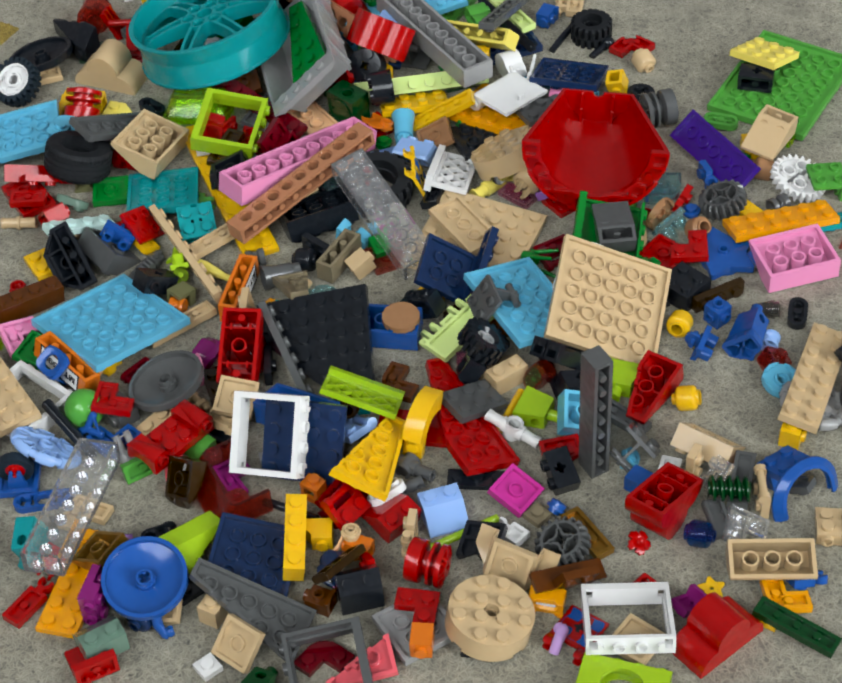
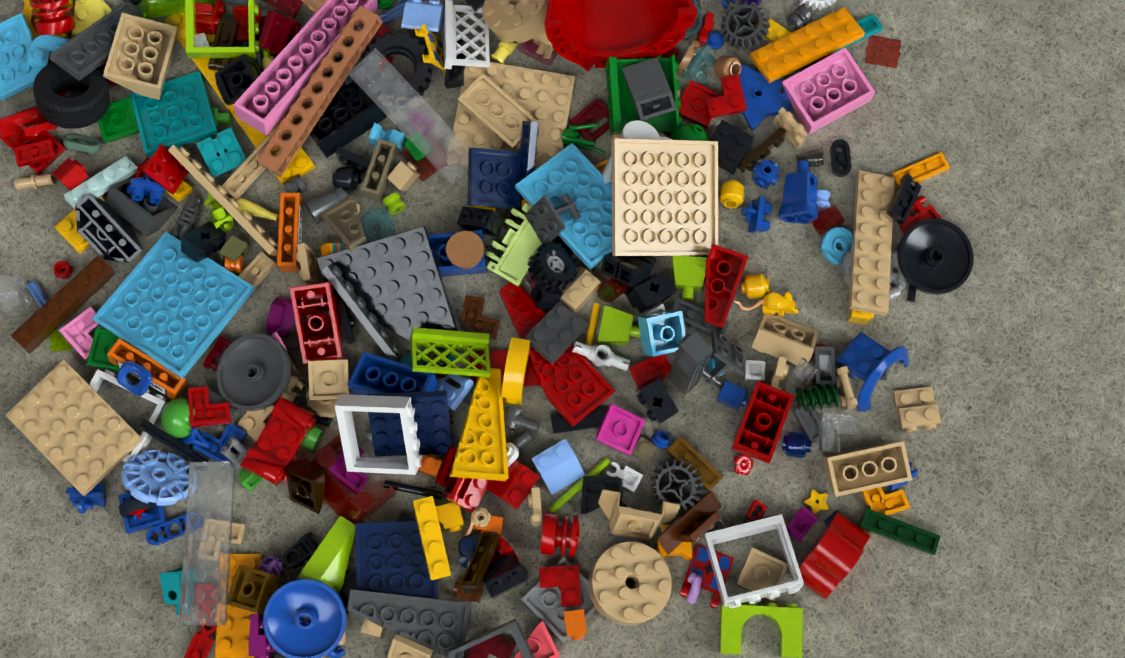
camera: 15 degrees left, 30 degrees up
(343, 280) = (394, 203): none -> lime wheel
(701, 414) = (774, 303): none -> yellow animal
(753, 279) = (794, 131): none -> tan plate

